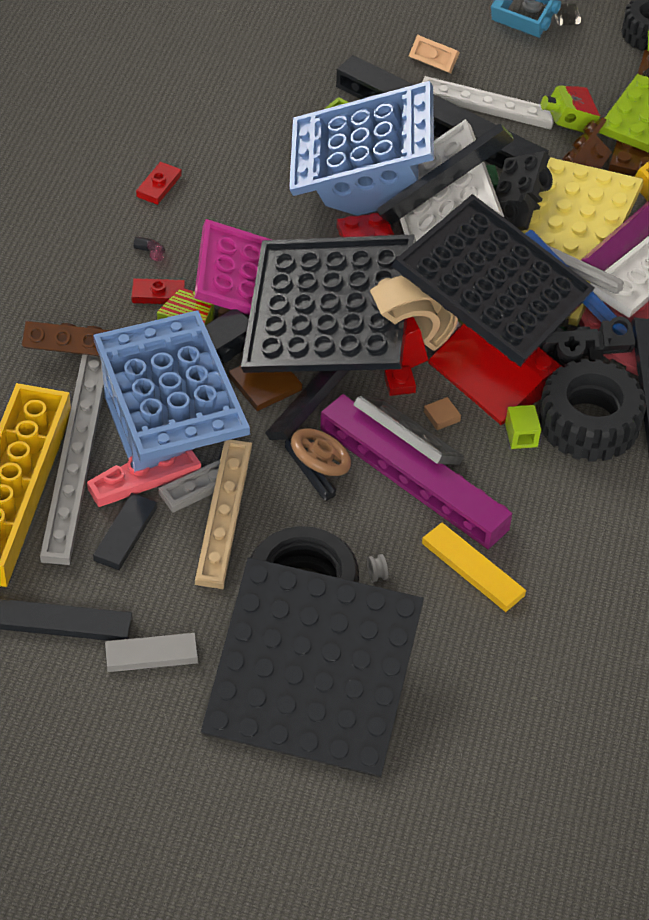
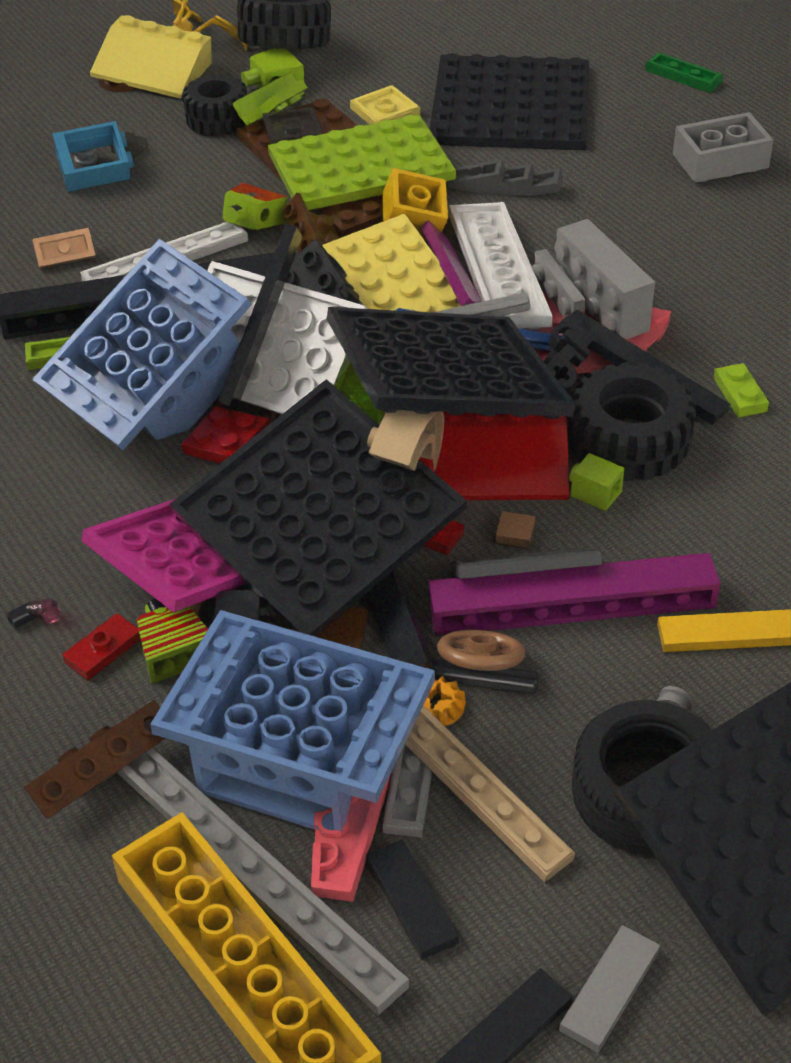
camera: 45 degrees left, 5 degrees down
(264, 466) = (452, 701): none -> light orange gear

